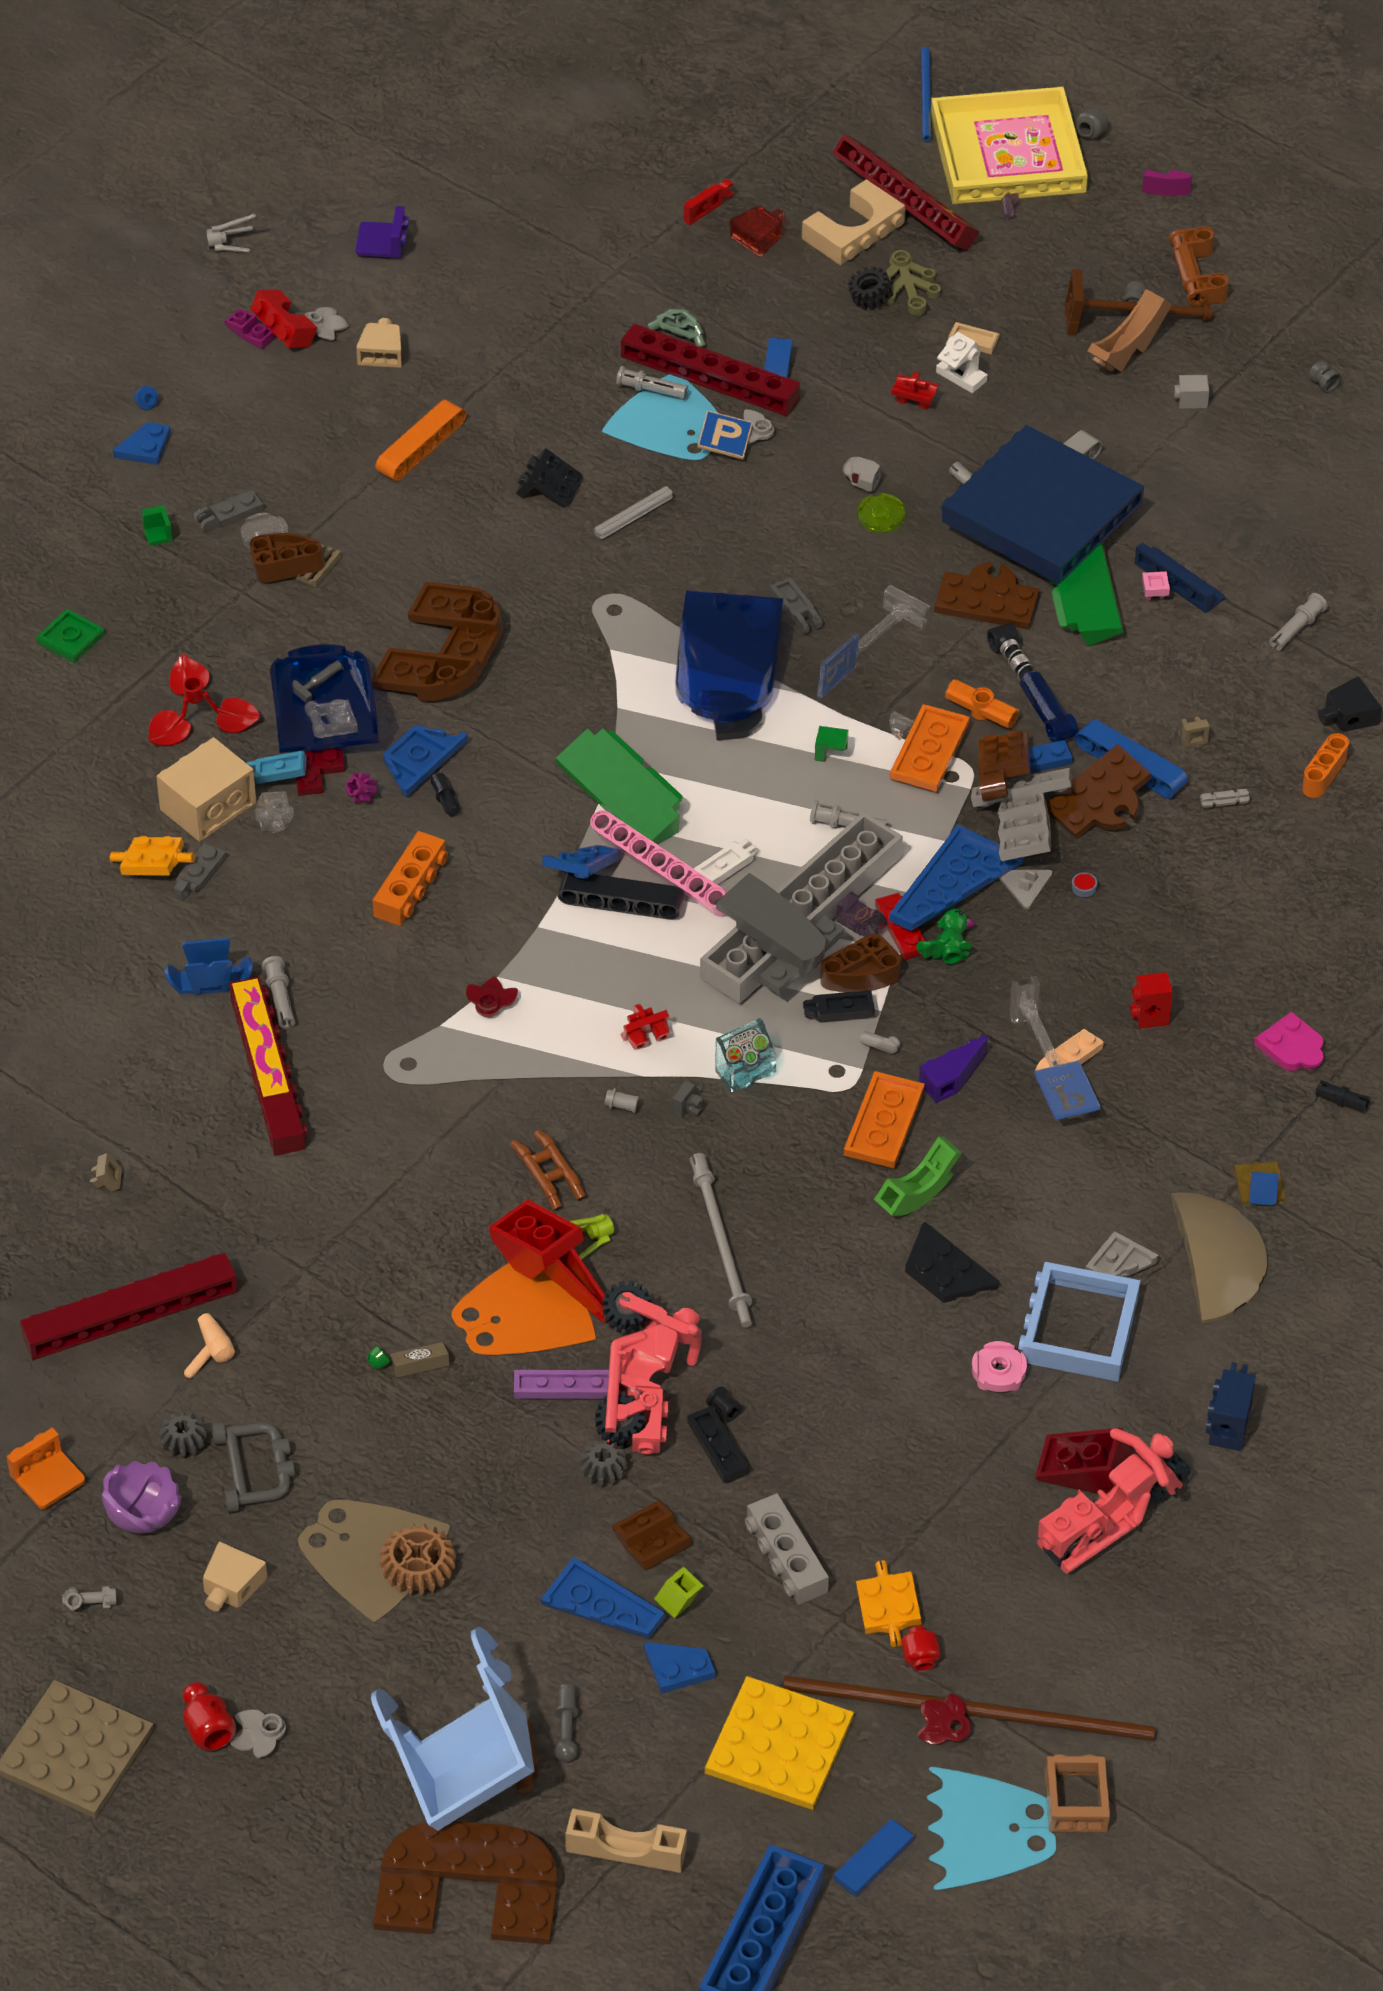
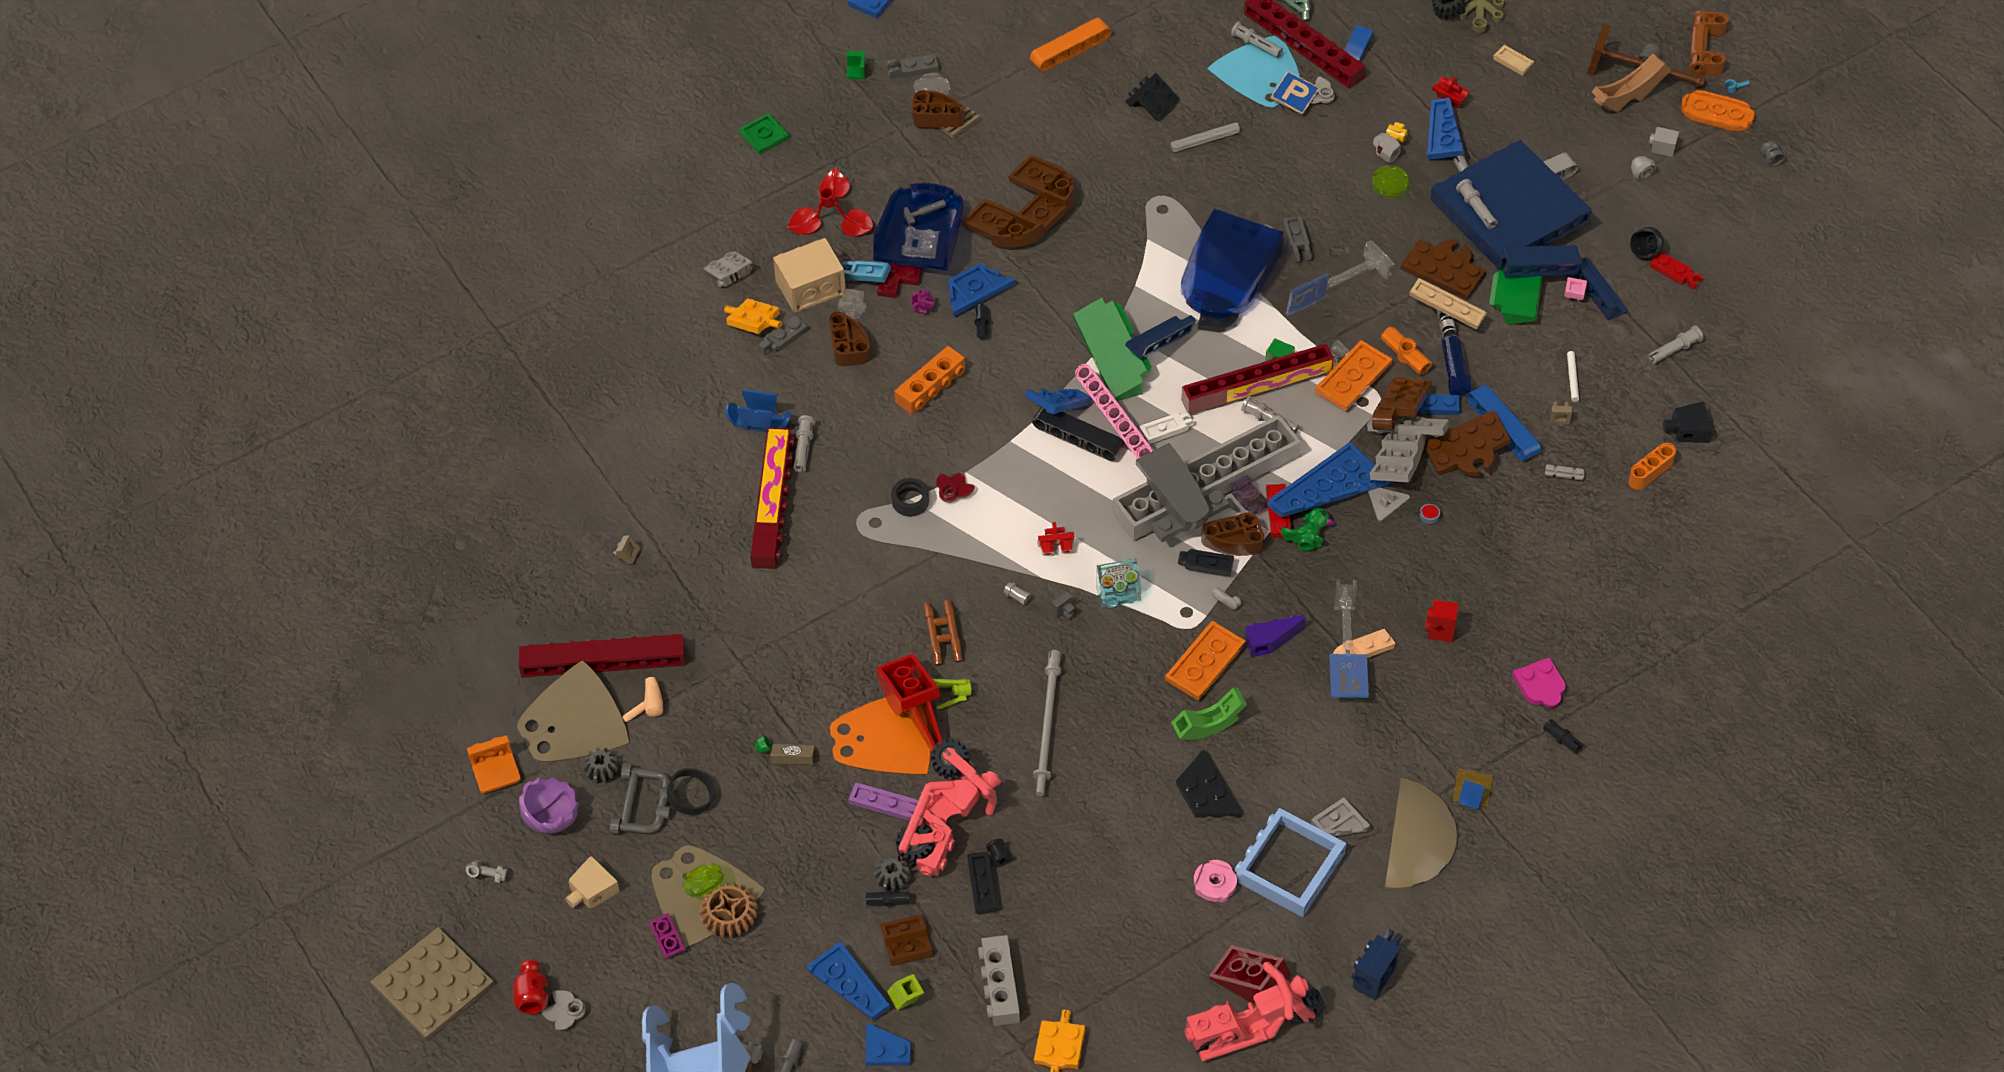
camera: 20 degrees right, 5 degrees up
(96, 807) = (728, 268): none -> light grey hinge
(132, 1383) = (581, 716): none -> dark tan piece
(286, 856) = (848, 340): none -> reddish brown beam
(317, 1414) = (696, 774): none -> black tyre
(350, 1611) = (666, 935): none -> magenta slope
(372, 1532) = (703, 880): none -> clear neon green tile
(444, 1036) = (912, 509): none -> black tyre
(609, 1493) = (887, 898): none -> black pin
(678, 756) = (1160, 336): none -> dark blue panel
(816, 778) = (1257, 379): none -> dark red brick
(869, 451) = (1397, 132): none -> yellow gear
(924, 439) = (1443, 131): none -> blue wing
(964, 355) = (1494, 70): white tile -> none
(998, 503) = (1472, 198): none -> light grey pin
(1012, 636) = (1447, 303): none -> tan tile
(1107, 560) = (1542, 261): none -> dark blue panel
(1178, 427) = (1642, 167): none -> light grey cone
(1190, 686) = (1573, 376): none -> white bar
(1220, 511) = (1647, 242): none -> black hair
(1239, 342) = (1717, 110): none -> orange tile
(1246, 308) = (1733, 85): none -> dark azure hand
(1263, 537) = (1675, 270): none -> red plate

